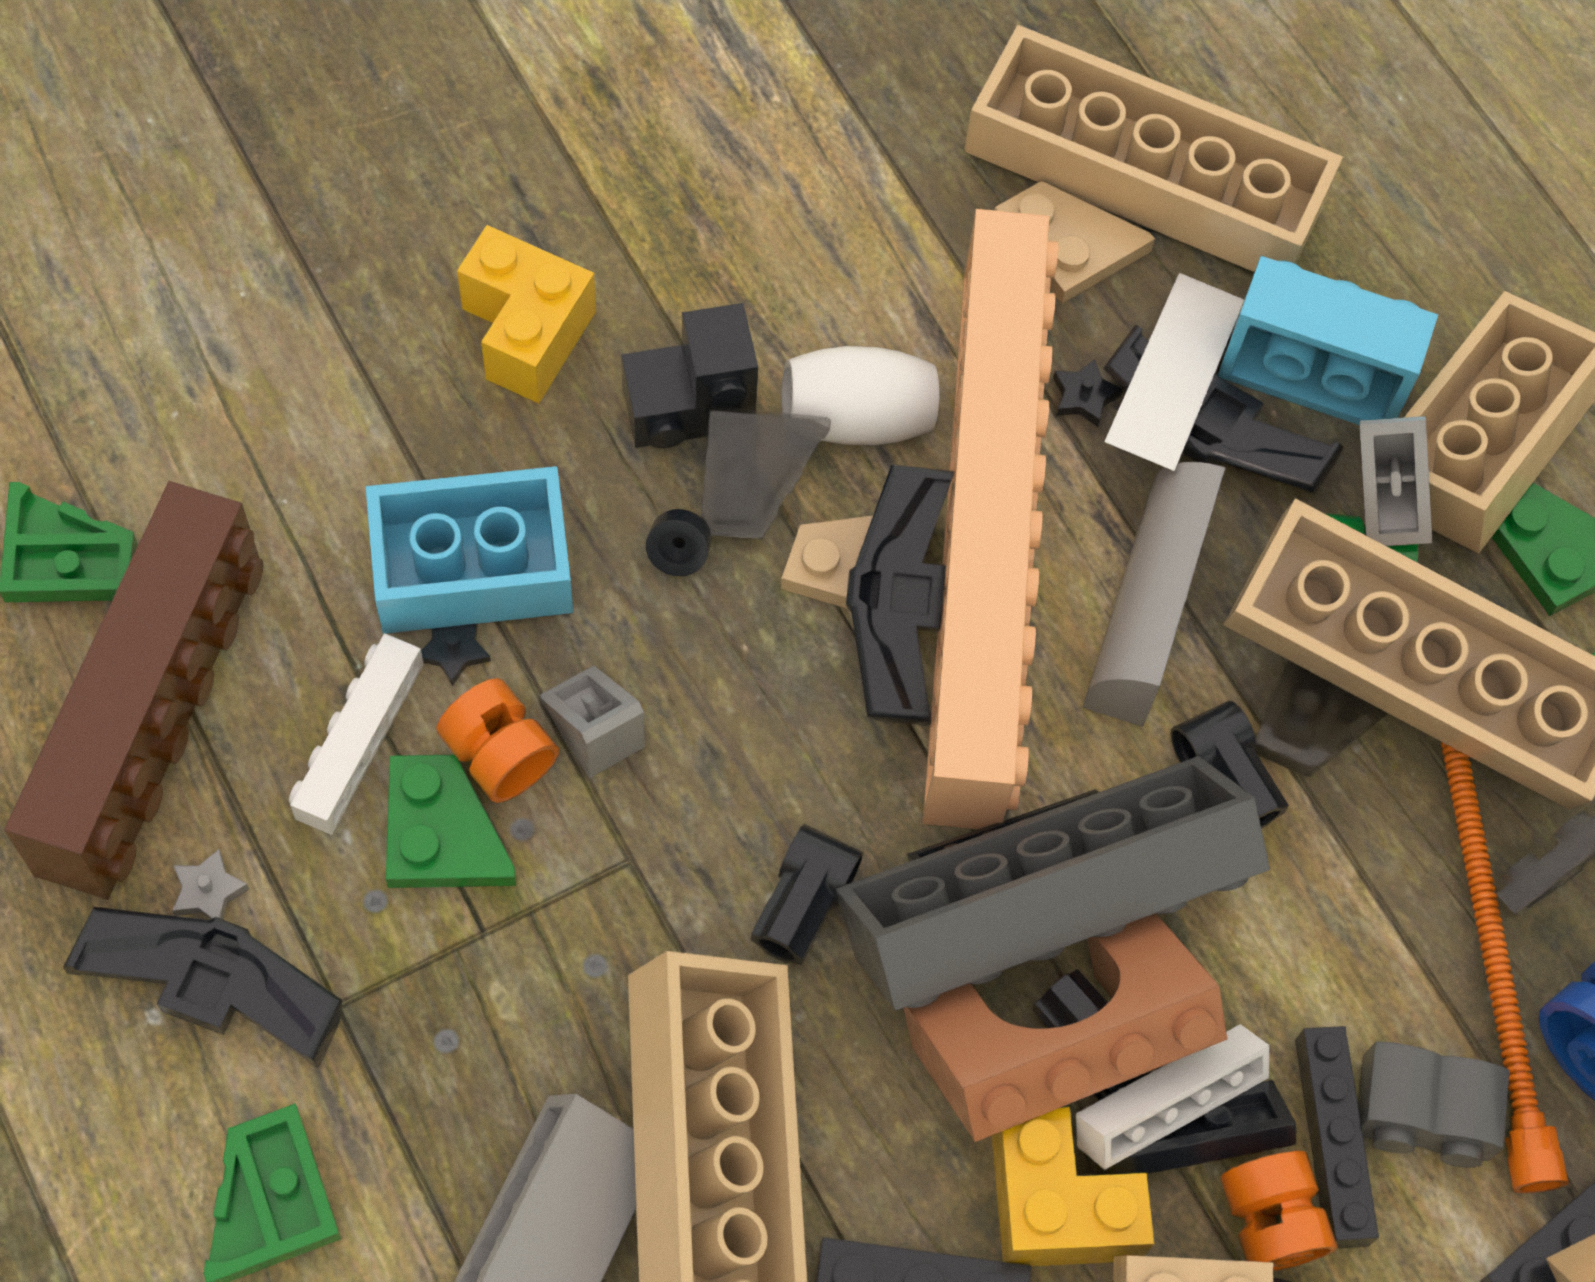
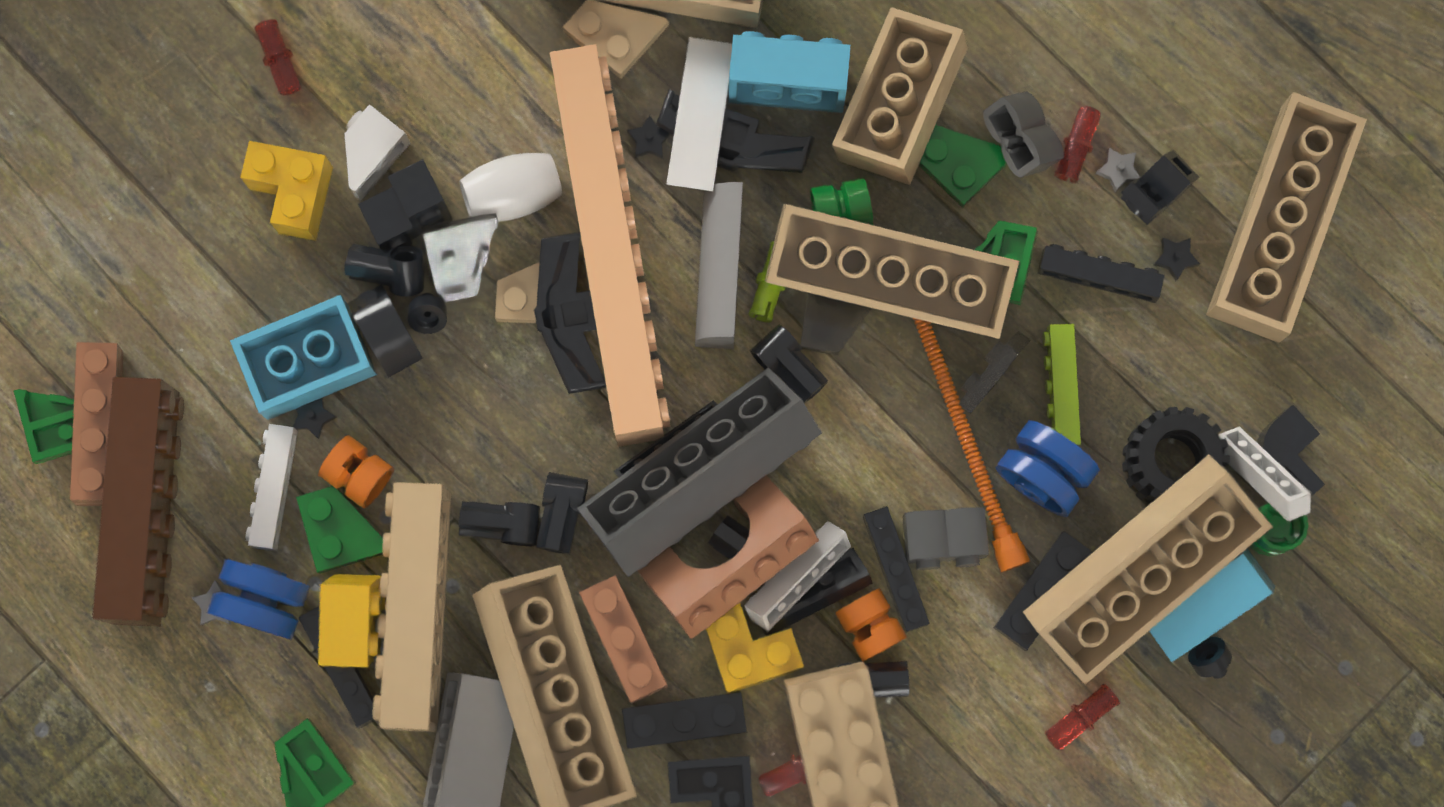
camera: 10 degrees left, 15 degrees up
(108, 547) = (92, 399): none -> nougat arch
(209, 975) = (235, 657): black plate -> none
(280, 884) = (258, 599): none -> blue wheel
(375, 1040) = (345, 679): none -> black piece
(415, 954) = (348, 620): none -> yellow brick
(526, 973) = (413, 607): none -> tan brick
(562, 141) = (277, 57): none -> clear red axle
(596, 719) = (407, 438): light grey slope -> none
(608, 548) = (384, 330): none -> black brick
(651, 463) = (398, 268): none -> black piece
(662, 282) = (371, 149): none -> white slope
(720, 888) = (511, 523): none -> black piece
(859, 1122) = (623, 639): none -> nougat arch
(1217, 653) = (766, 295): none -> lime pin
(1396, 480) = (846, 168): light grey slope -> none

